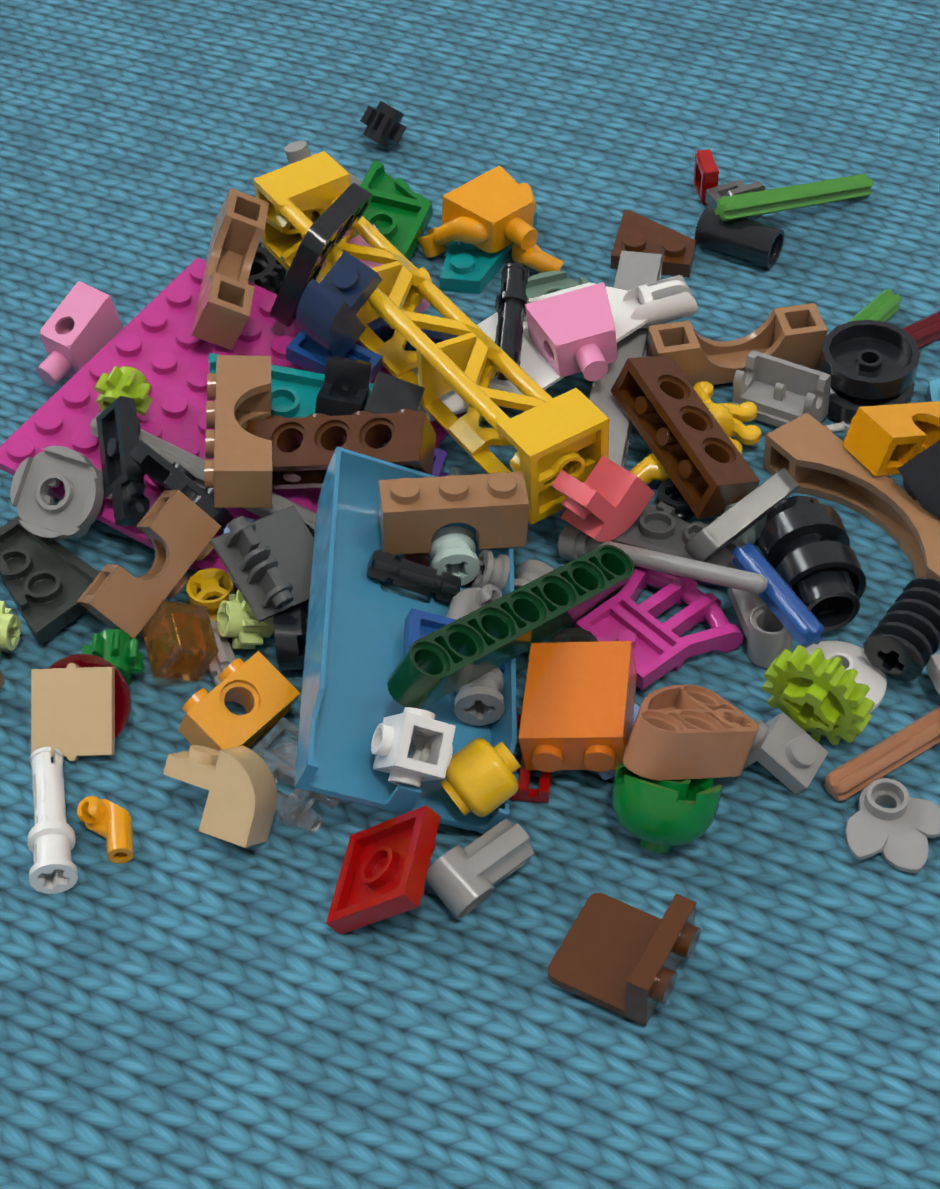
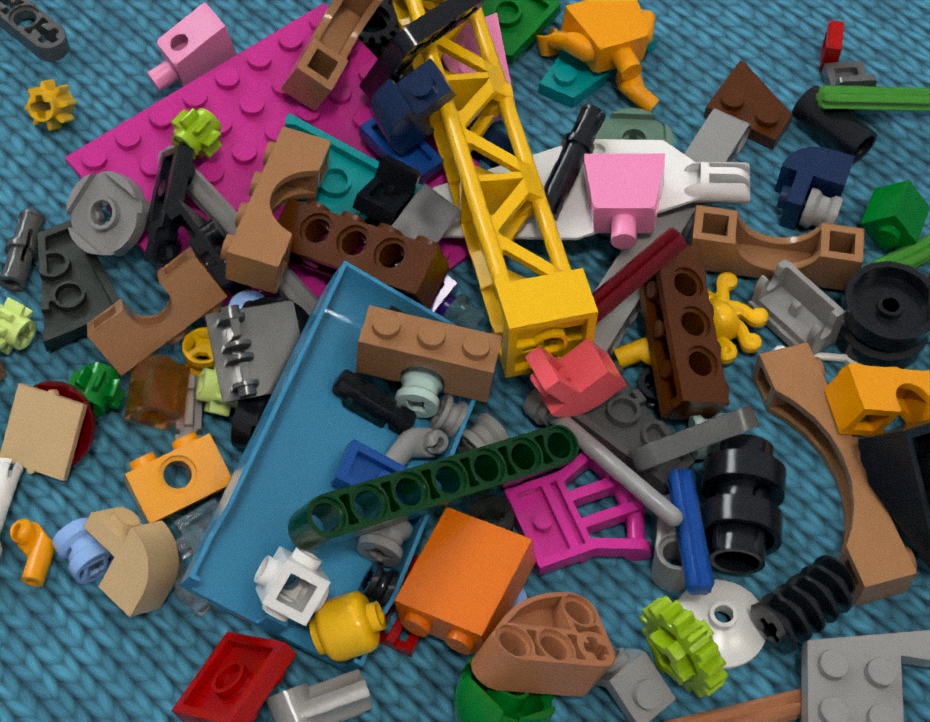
camera: 15 degrees right, 10 degrees up
(171, 809) = (85, 554): none -> light blue wheel
(492, 730) = (378, 583): none -> black bush
(630, 378) = (638, 271): none -> dark red axle
(742, 284) = (810, 169): none -> dark blue brick
(759, 306) = (820, 209): none -> light grey wheel
(835, 291) = (895, 215): none -> green brick

